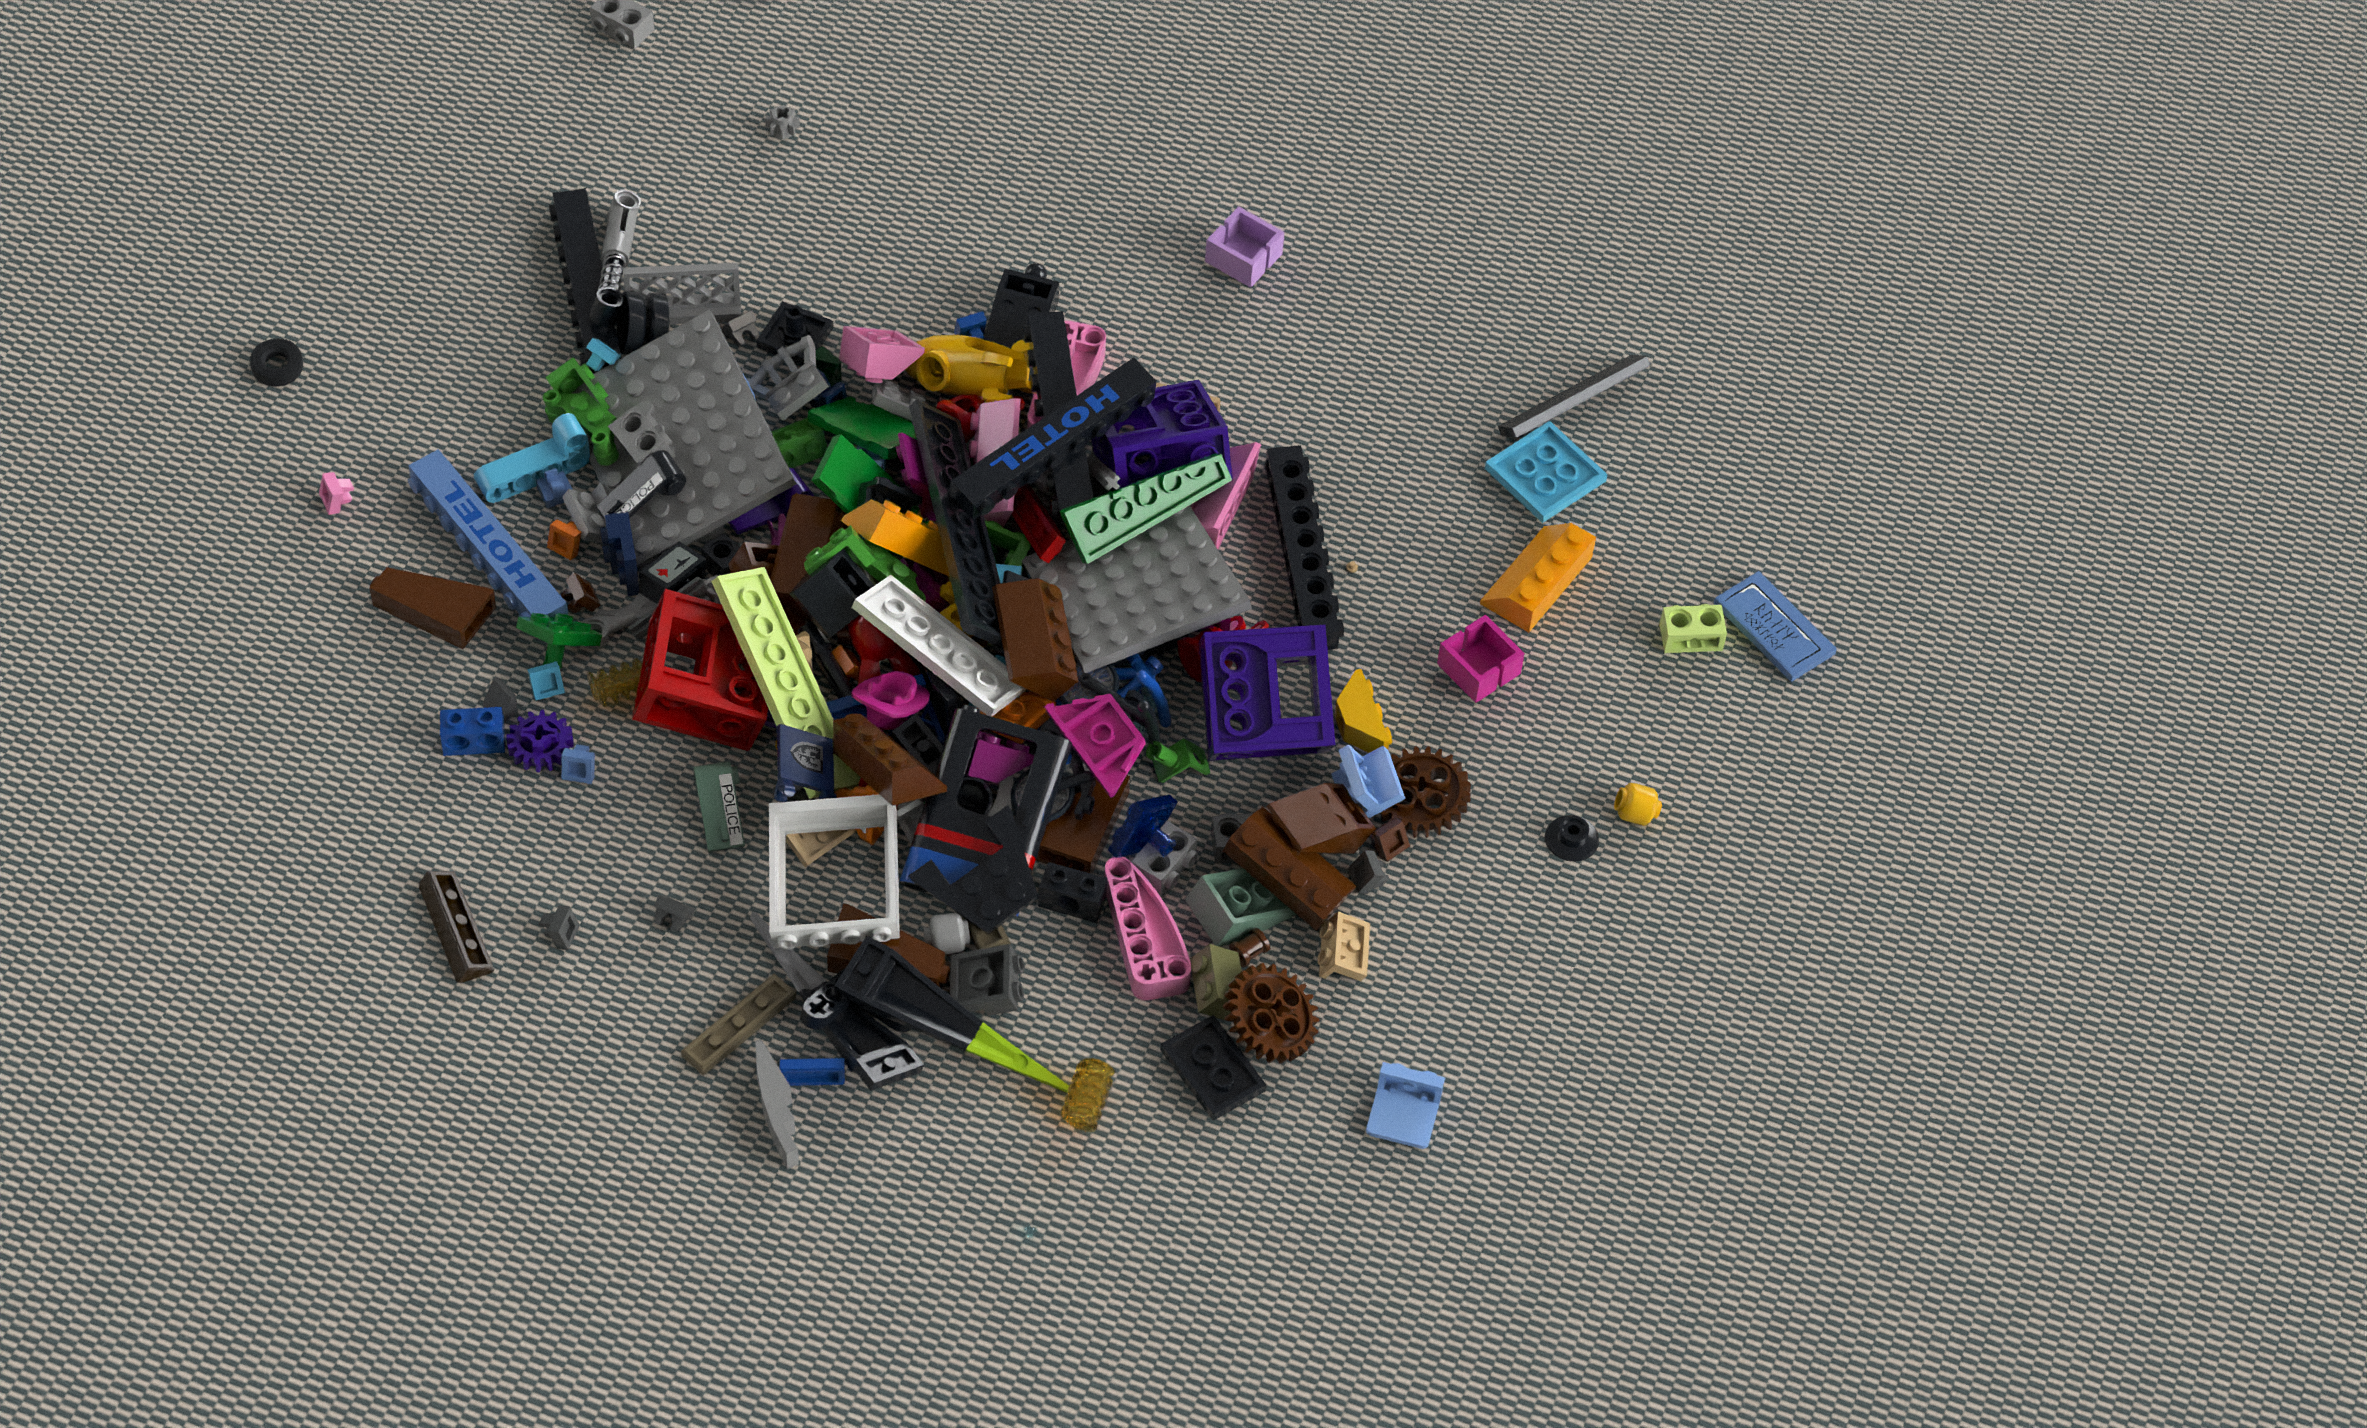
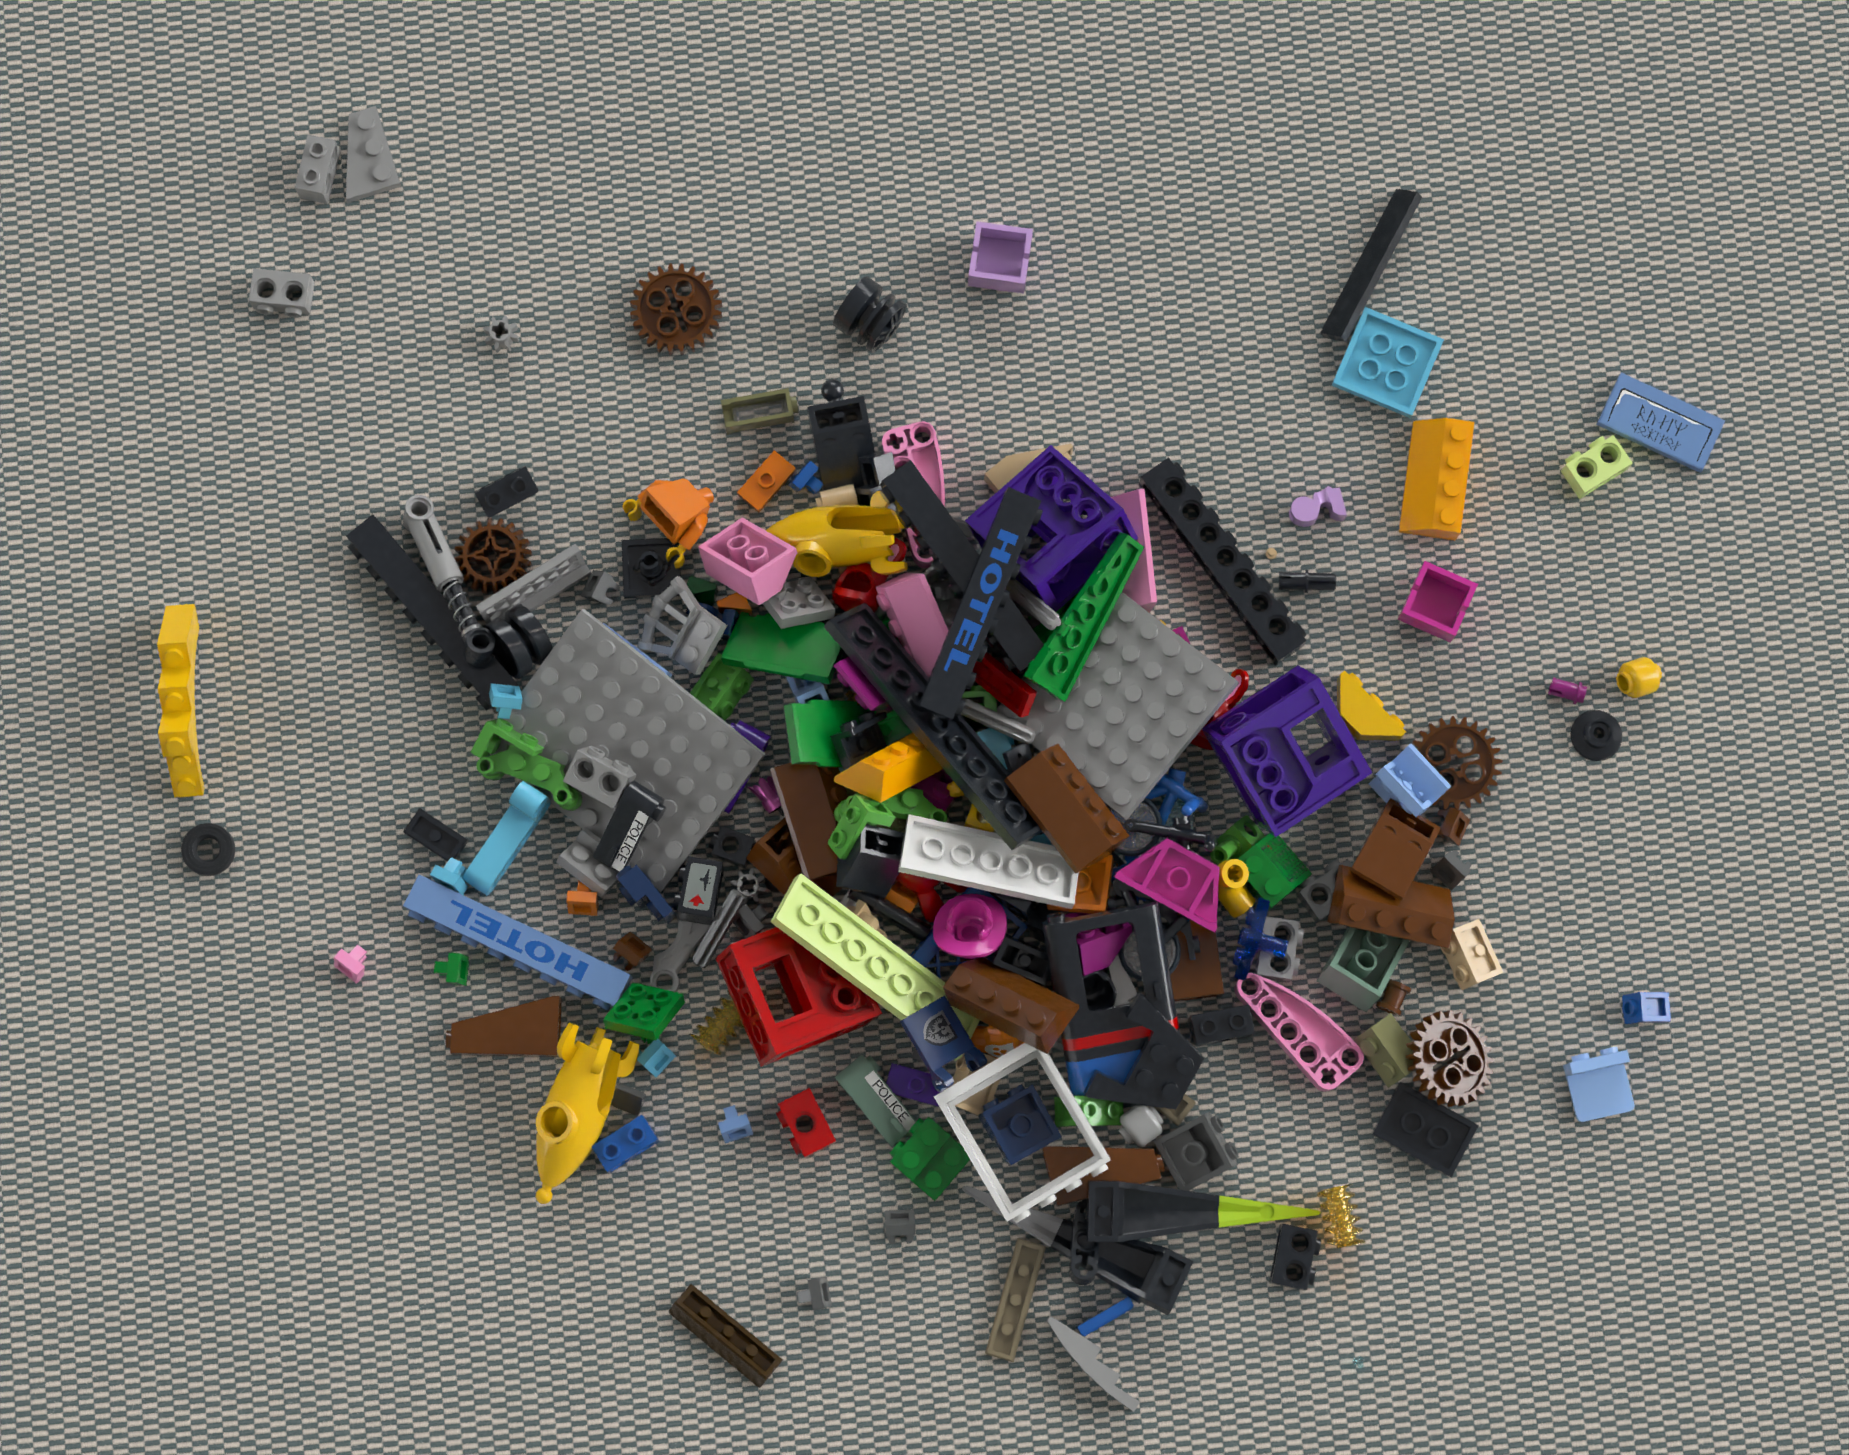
camera: 25 degrees left, 25 degrees up
(312, 252) = (177, 698): none -> yellow arch
(419, 536) = (455, 969): none -> green tile
(449, 673) = (577, 1105): none -> yellow piece
(464, 465) = (451, 876): none -> medium azure tile
(473, 438) = (435, 835): none -> black plate
(539, 740) = (694, 1133): dark purple gear -> none
(553, 487) = (539, 849): medium blue tile -> none
(647, 807) = (805, 1105): none -> red brick
(665, 252) = (480, 556): none -> reddish brown gear
(708, 221) = (506, 491): none -> black bracket
(735, 872) = (929, 1157): none -> green plate
(754, 809) = (912, 1084): none -> dark purple plate
(834, 877) = (1019, 1124): none -> dark blue plate
(841, 297) = (676, 510): none -> orange torso
(852, 384) = (735, 602): none -> orange slope
(912, 903) = (1097, 1112): none -> bright green bracket
(934, 319) = (766, 481): none -> orange plate
(962, 170) = (653, 318): none -> reddish brown gear
(963, 265) = (759, 410): none -> olive window
(1015, 1105) = (1286, 1255): none -> black brick
(1016, 557) = (998, 722): none -> light grey axle
(1103, 234) = (864, 310): none -> black wheel
(1150, 770) = (1232, 889): none -> yellow cylinder
(1198, 792) = (1273, 869): none -> green slope
(1369, 596) = (1307, 581): none -> black axle
(1404, 545) = (1306, 510): none -> lavender leg
(1489, 1067) = (1646, 1007): none -> bracket
(1564, 786) = (1567, 690): none -> magenta pin

